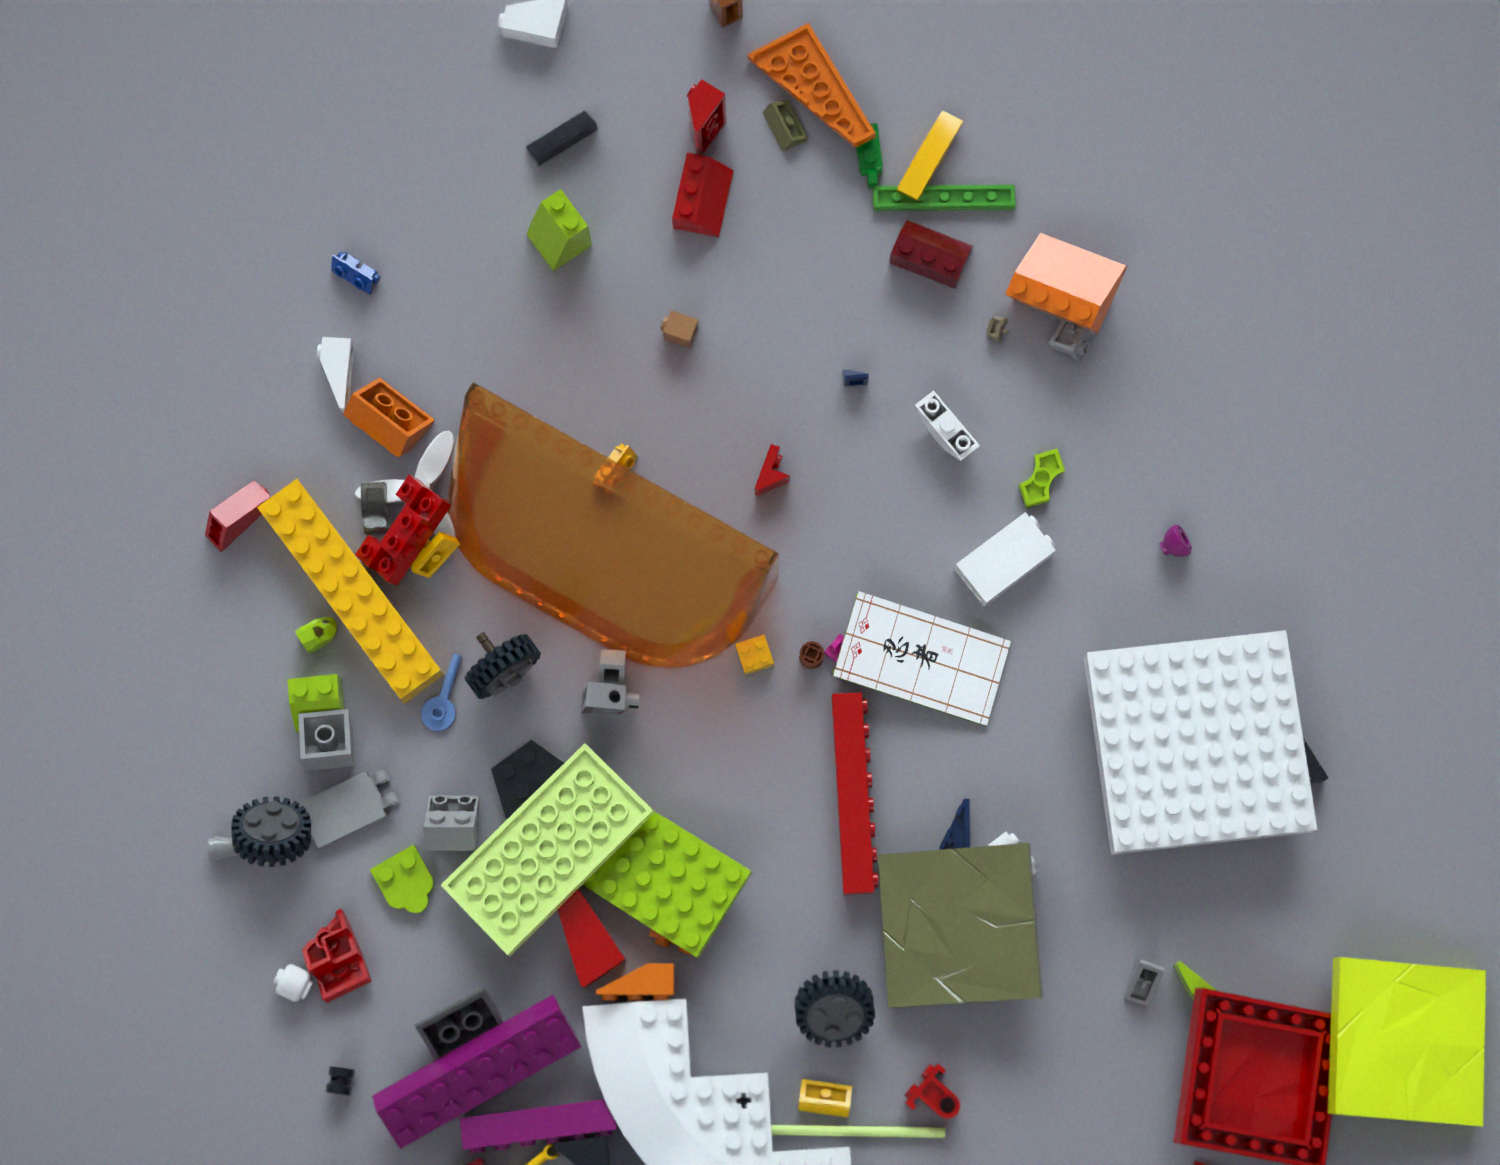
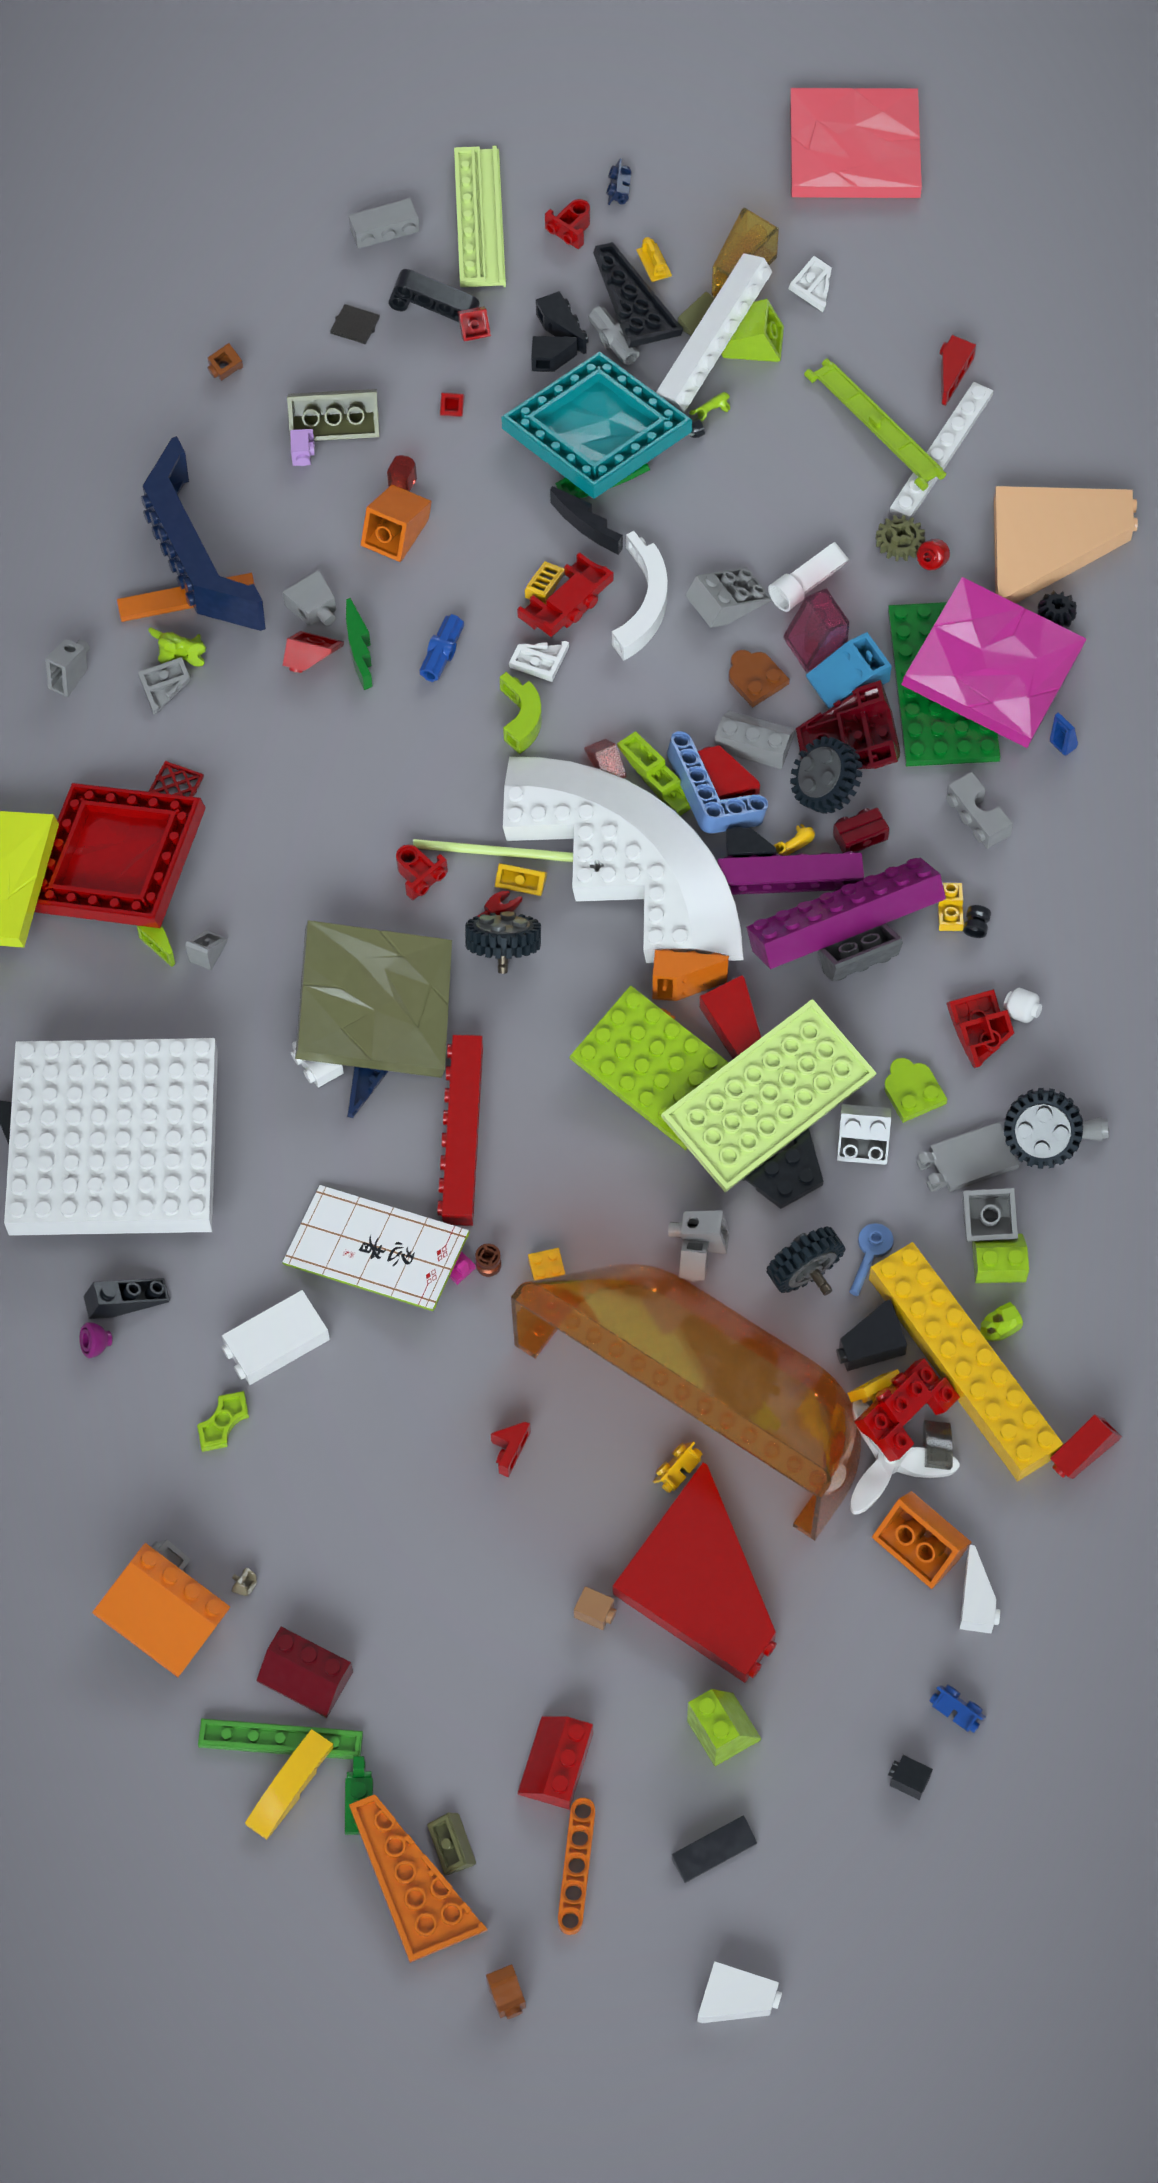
camera: 175 degrees left, 15 degrees down
(365, 1086) = (951, 909): none -> yellow slope
(395, 207) = (910, 1776): none -> black brick
(438, 605) = (873, 1339): none -> black slope
(588, 359) = (699, 1582): none -> red slope
(677, 104) = (576, 1879): none -> orange beam
(706, 114) = (542, 1838): red slope -> none
(848, 1057) = (495, 905): none -> red hand
(855, 378) = (408, 1540): dark blue slope -> none
(945, 427) = (315, 1470): white slope -> none
(1154, 589) = (122, 1297): none -> black slope

